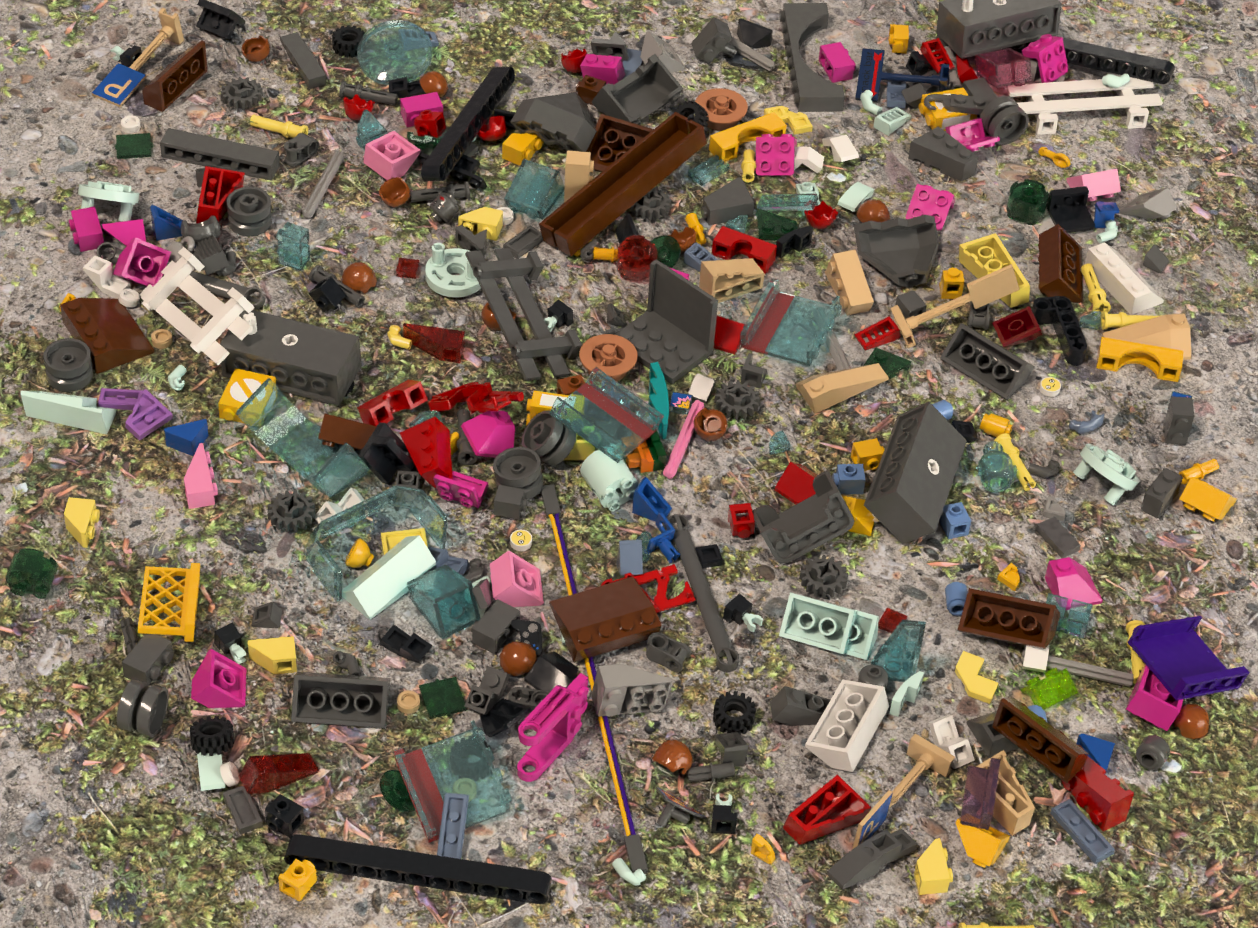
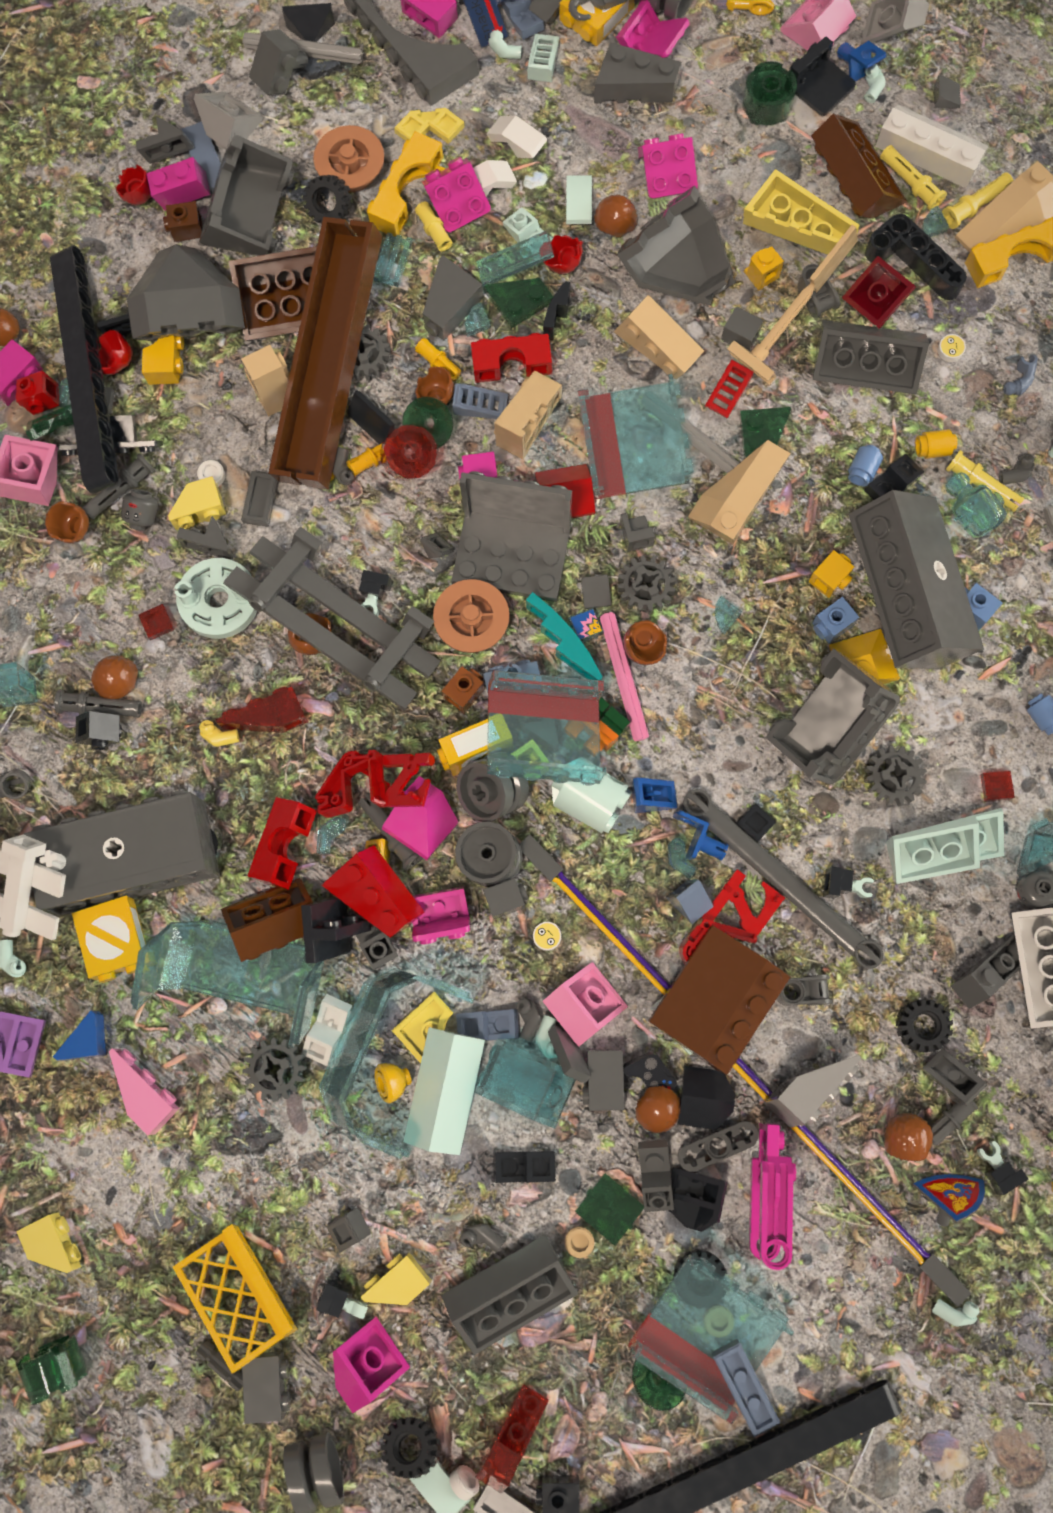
camera: 25 degrees left, 30 degrees up
(534, 190) = (224, 421): clear light blue slope -> none
(741, 525) = (763, 746): red brick -> none
(796, 483) = (792, 659): red slope -> none

